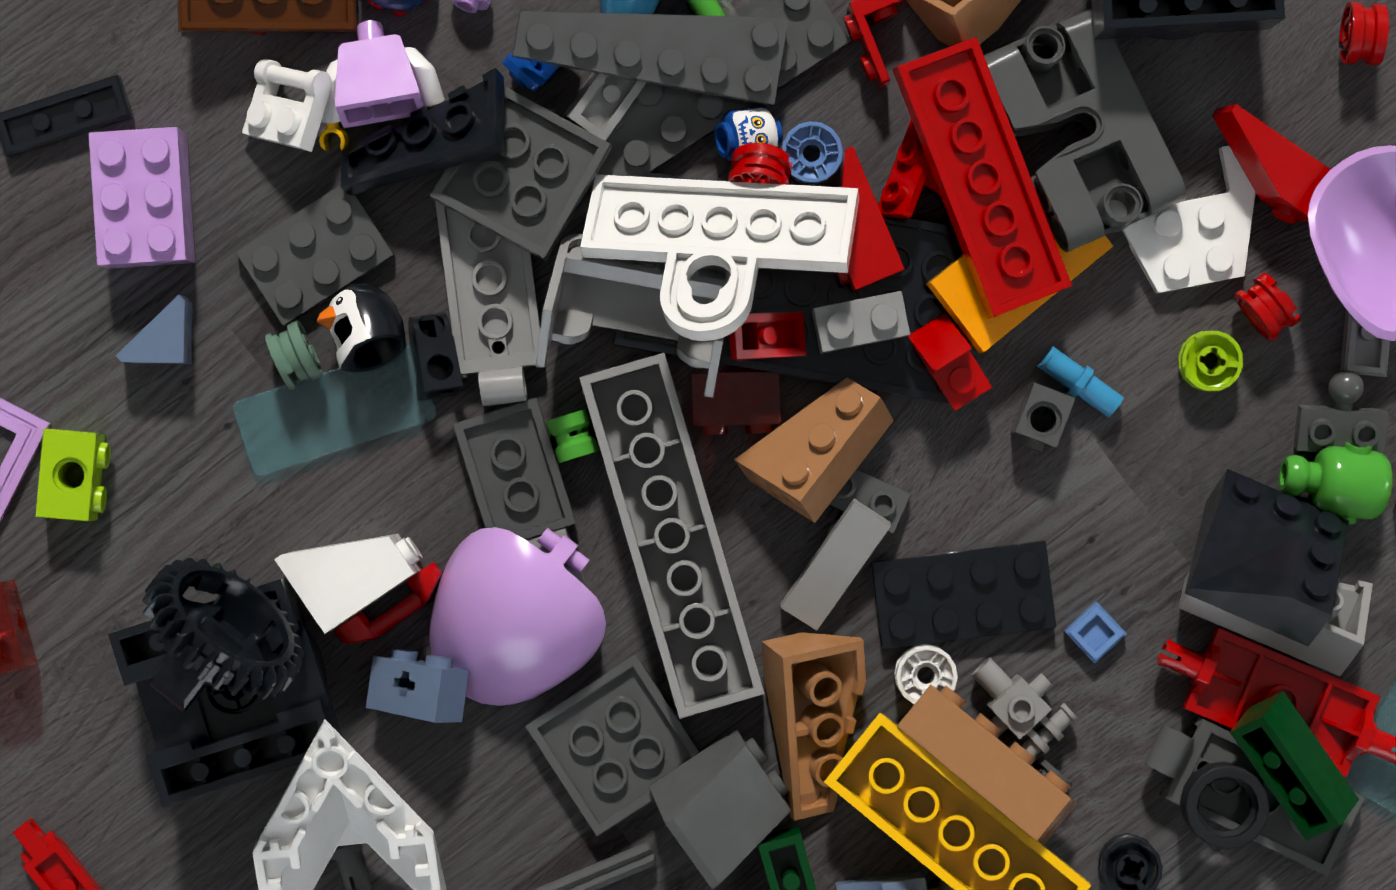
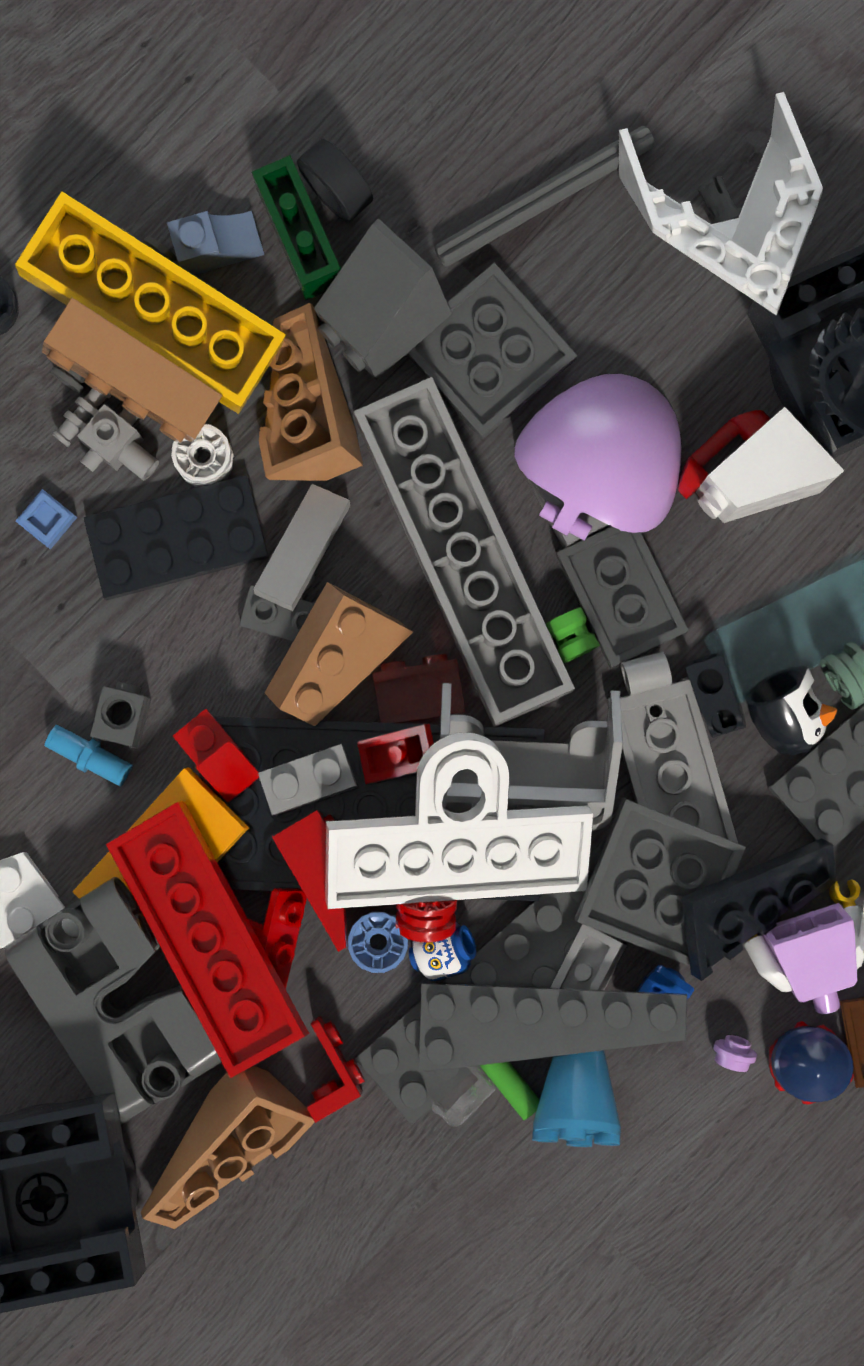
camera: 170 degrees right, 5 degrees down
(416, 687) = (685, 375): sand blue brick -> none

